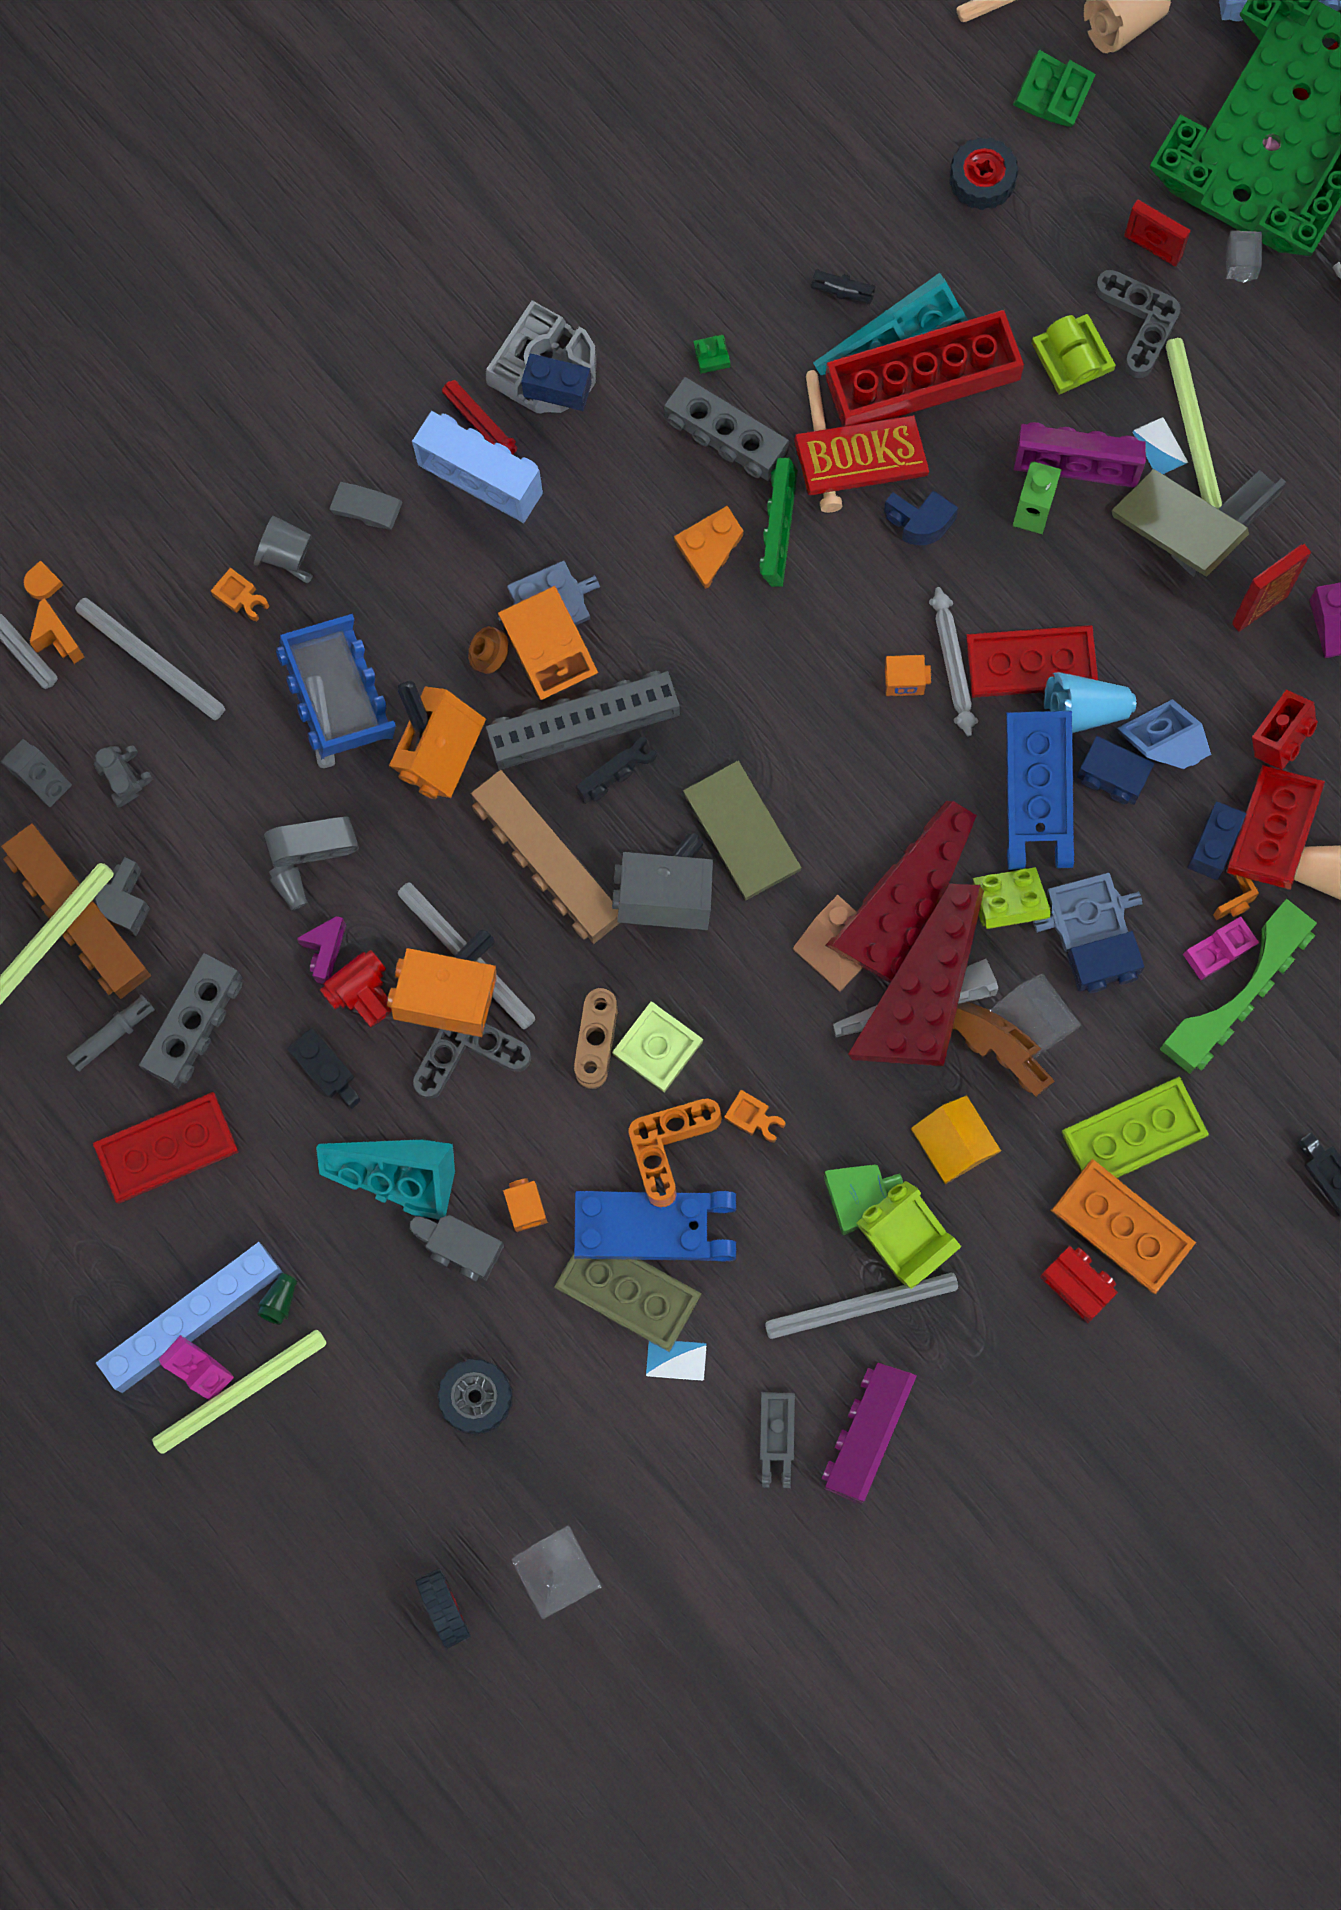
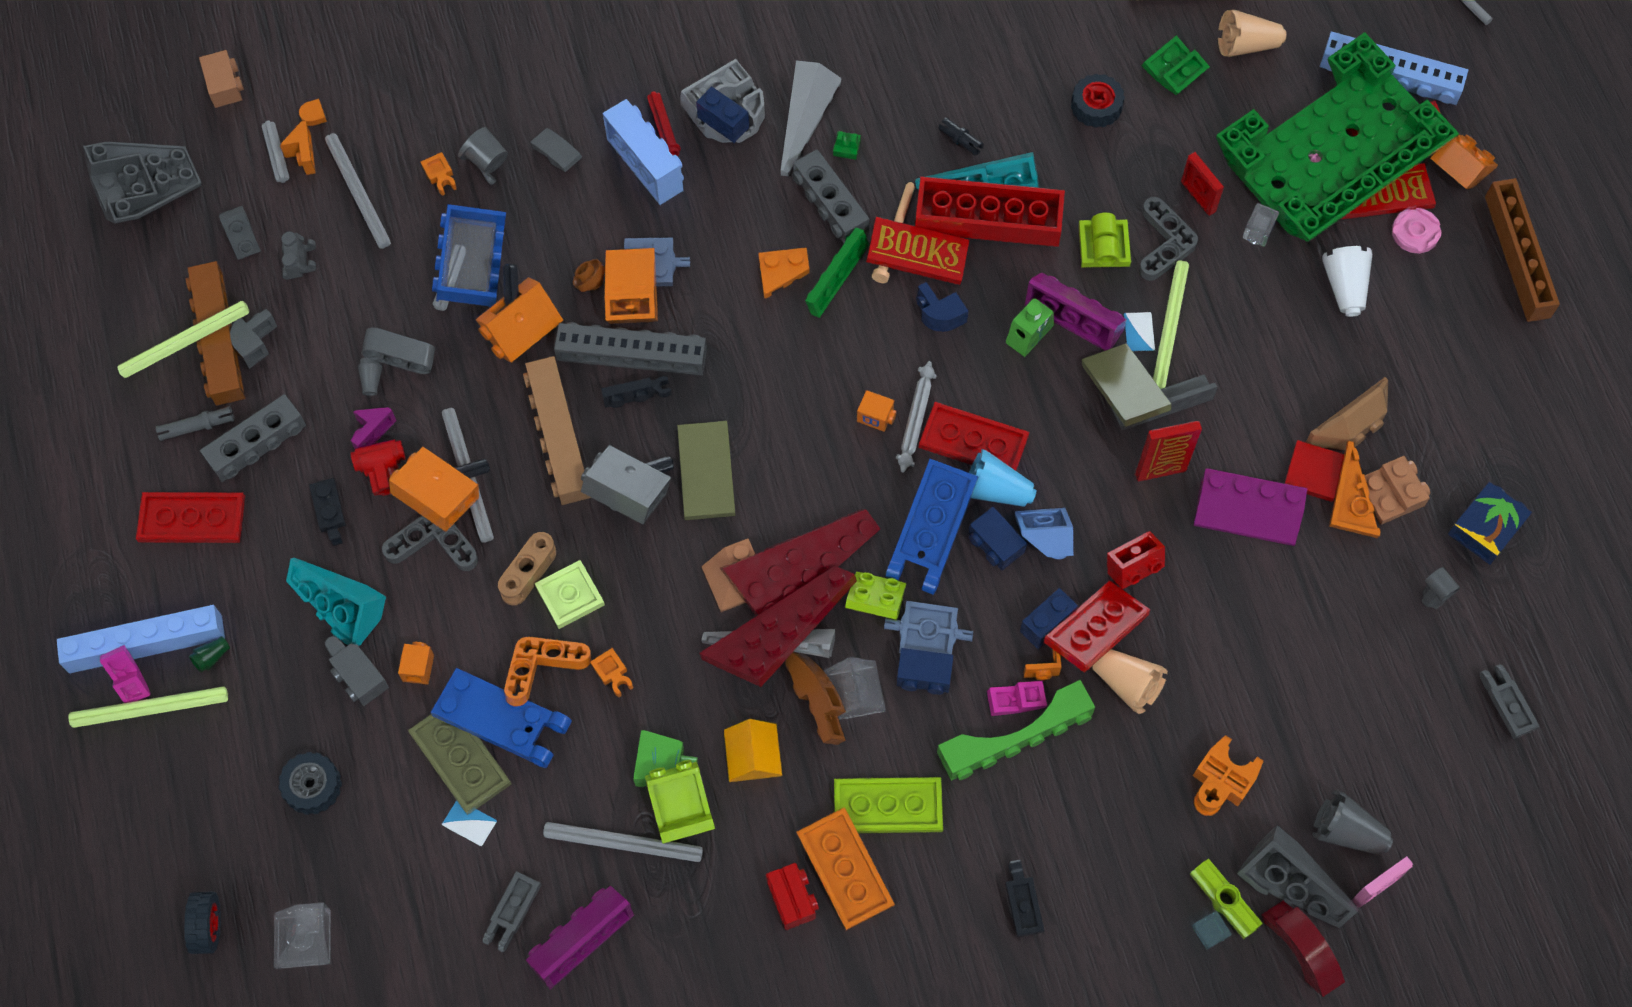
camera: 20 degrees right, 10 degrees down
(639, 305) = (810, 95): none -> light grey wedge

